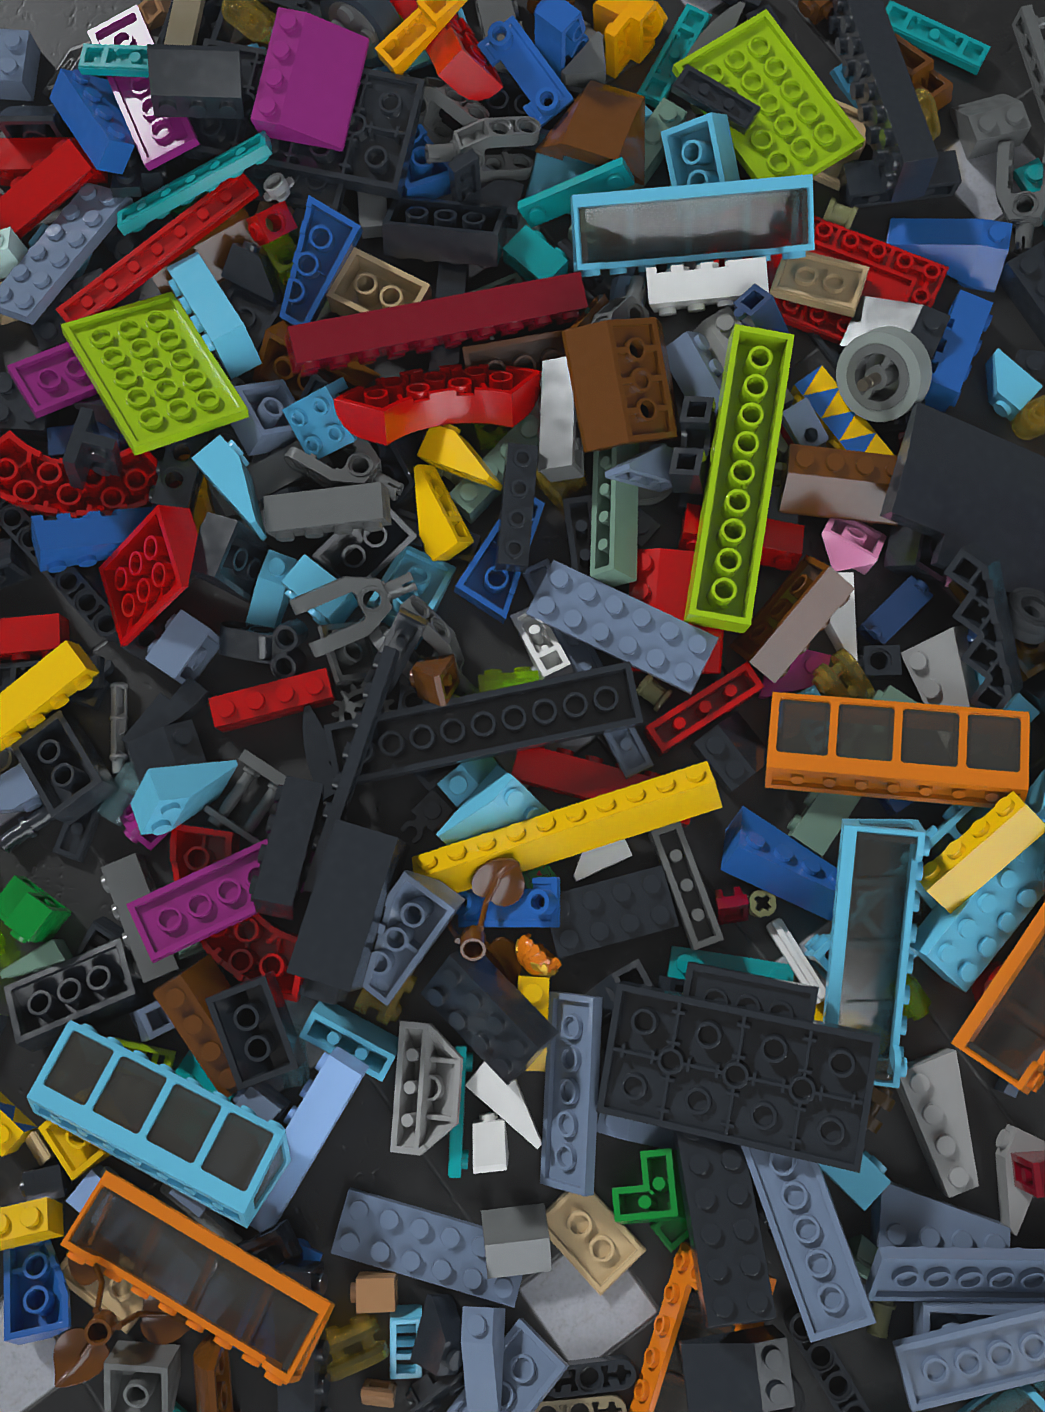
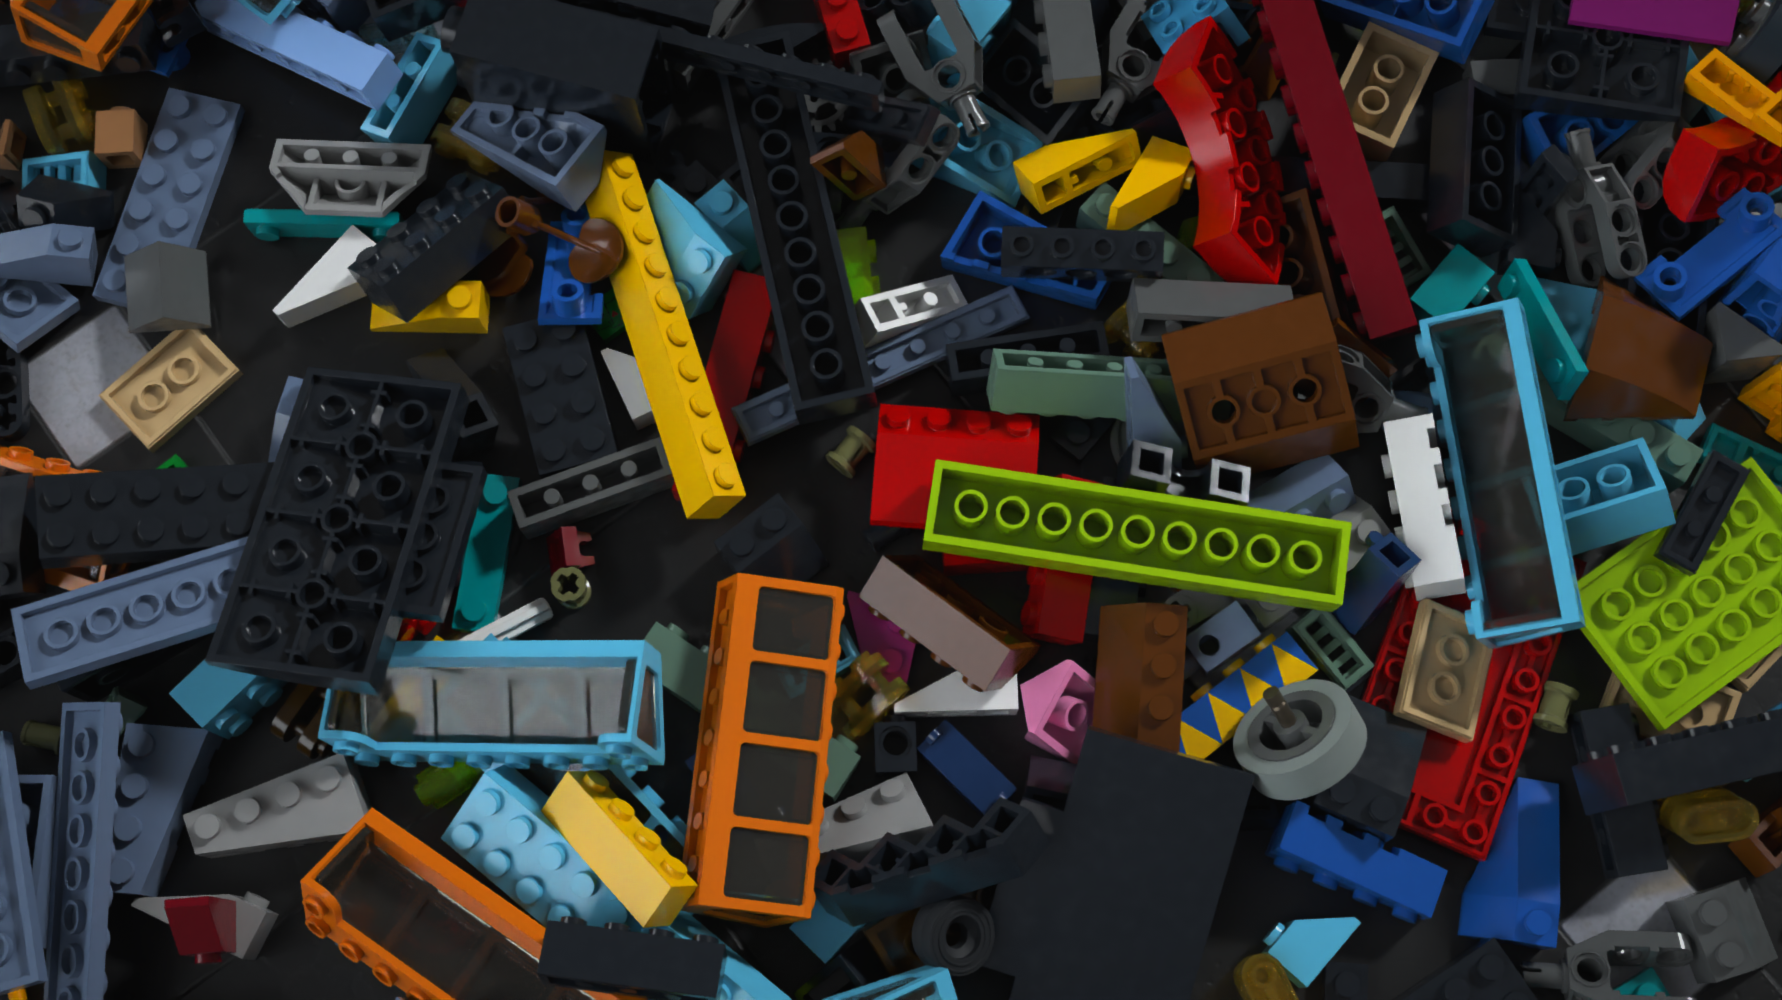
camera: 85 degrees right, 5 degrees down
(489, 1143) = (275, 250): white slope -> none
(536, 958) = (507, 307): orange hair -> none
(571, 1093) = (353, 348): sand blue plate -> none
(622, 626) = (926, 394): sand blue plate -> none
(659, 1195) = (204, 442): green brick -> none
(703, 708) = (824, 508): red brick -> none
(778, 864) = (626, 588): blue wedge -> none
(804, 367) = (1318, 655): none -> sand green slope

